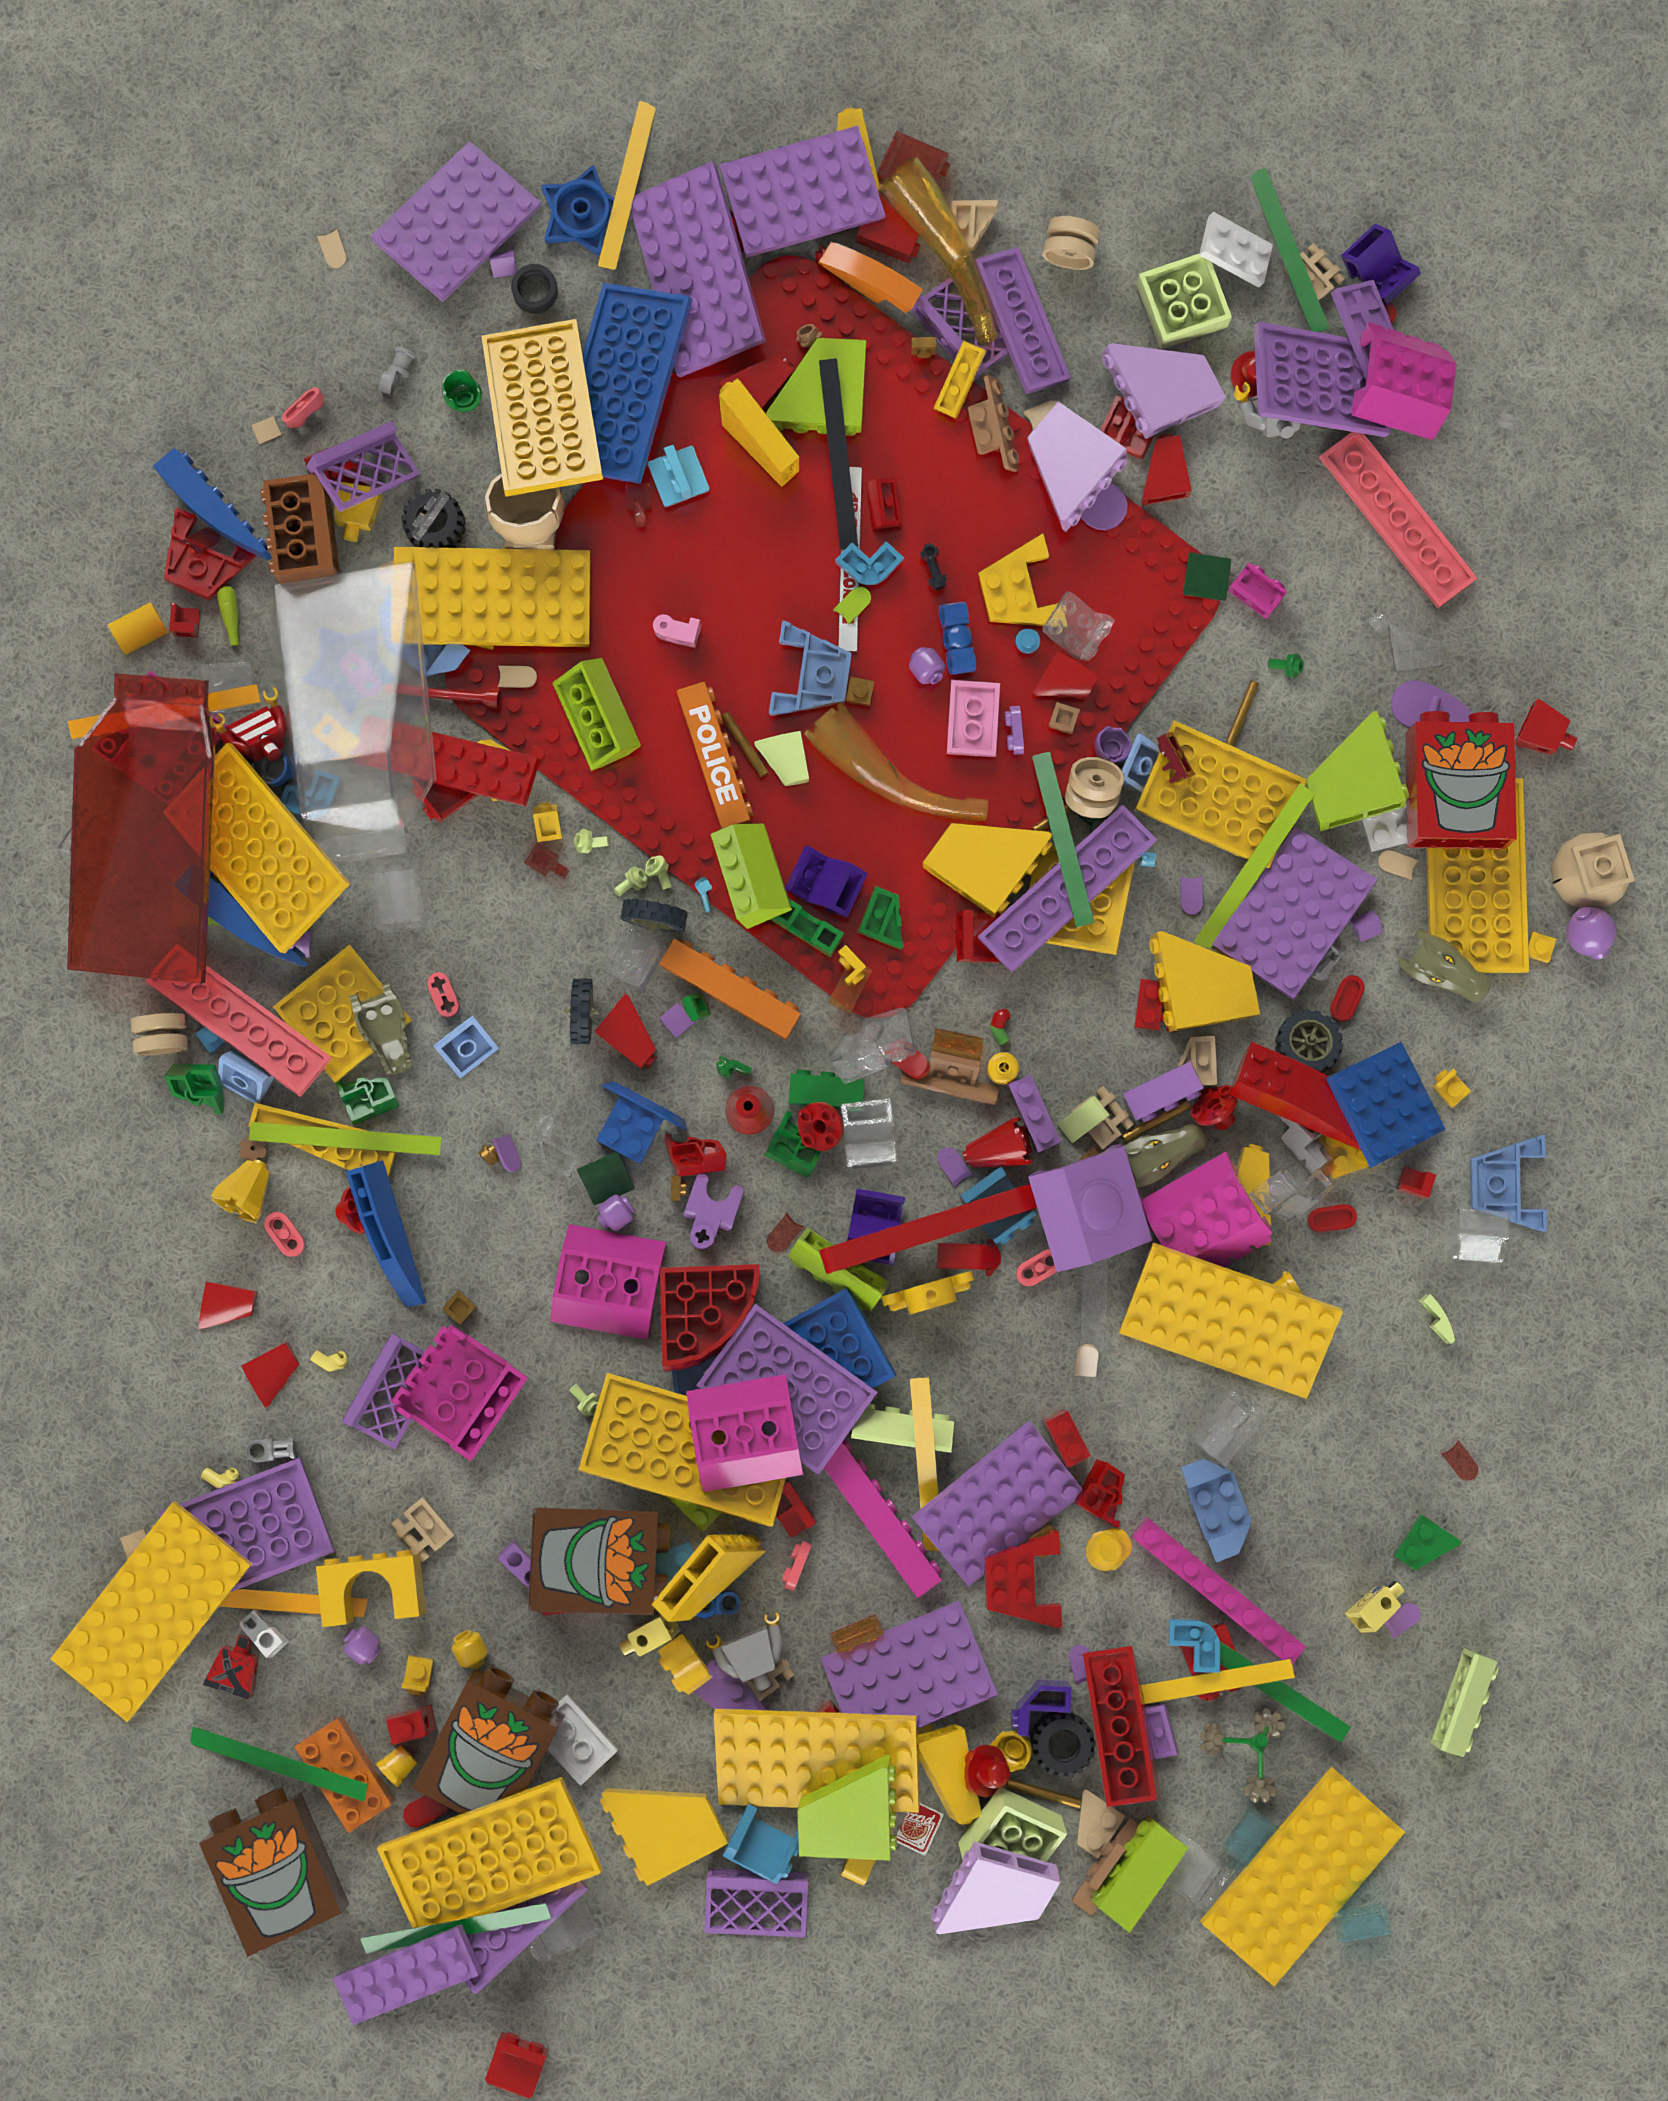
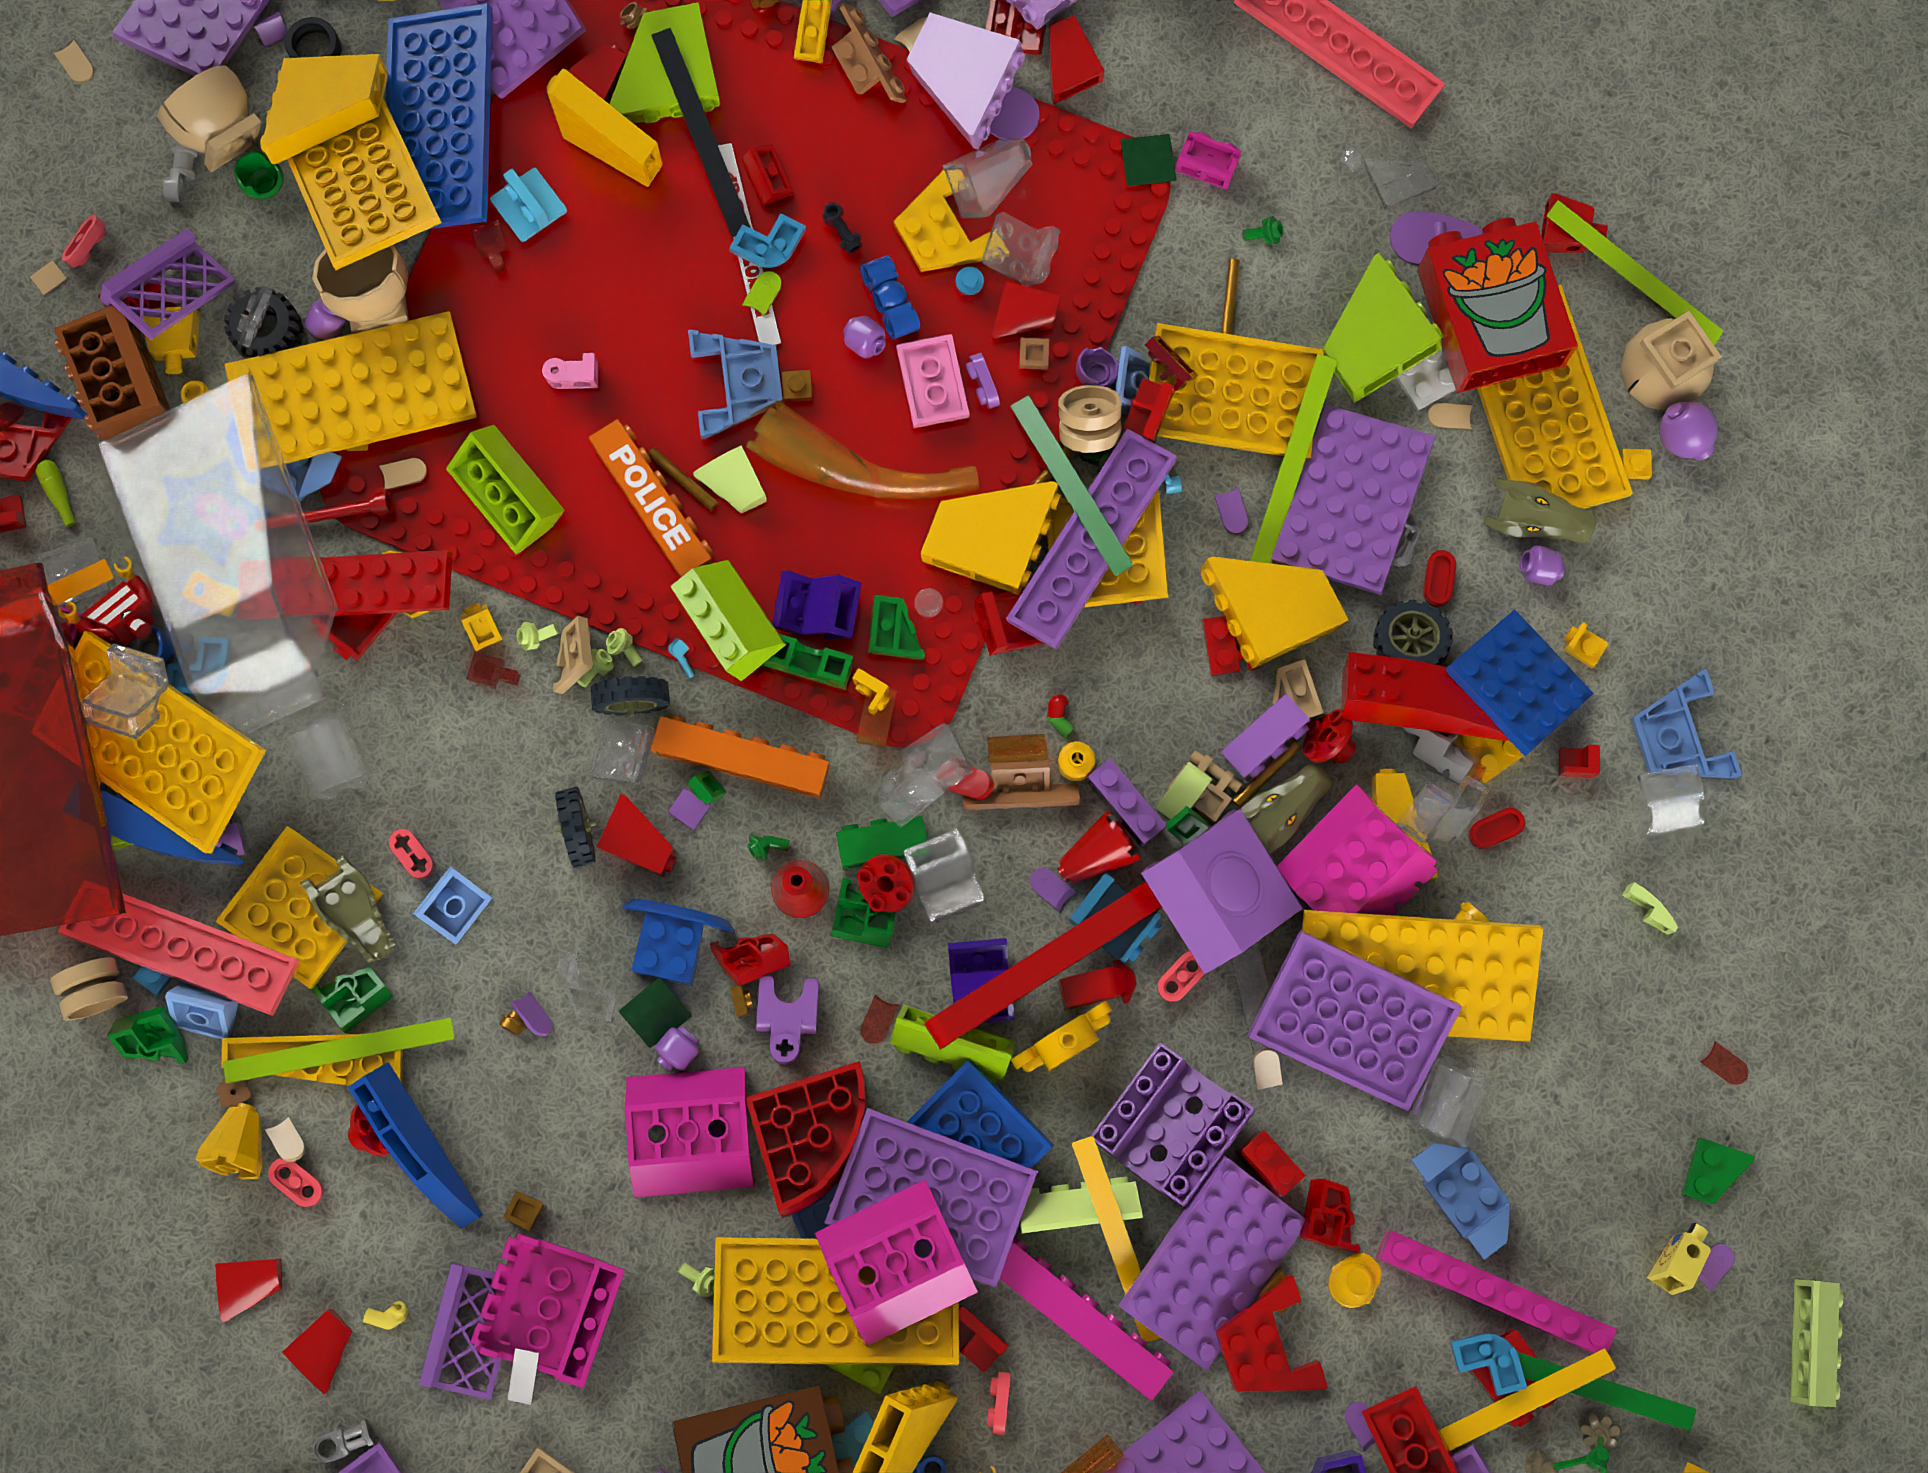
camera: 15 degrees left, 5 degrees down
(251, 806) = (130, 695): none -> clear piece
(285, 1199) = (286, 1141): none -> tan piece
(362, 561) = (192, 390): none -> yellow plate
(425, 1438) = (523, 1376): none -> white sticker
(435, 332) = (211, 116): none -> tan plate
(482, 532) = (323, 323): none -> medium lavender head
(529, 342) = (321, 100): none -> yellow slope
(617, 866) = (574, 654): none -> tan wing
(918, 903) = (928, 602): none -> clear plate
(986, 1373) = (1156, 1115): none -> medium lavender slope
(1067, 556) = (987, 175): none -> clear slope
(1077, 1146) = (1186, 825): none -> green plate
(1145, 792) = (1149, 409): none -> red panel
(1167, 1342) = (1354, 1020): none -> medium lavender plate
(1366, 926) = (1437, 492): medium lavender slope -> none
(1435, 1011) = (1542, 565): none -> medium lavender head
(1587, 784) = (1629, 268): none -> lime sticker

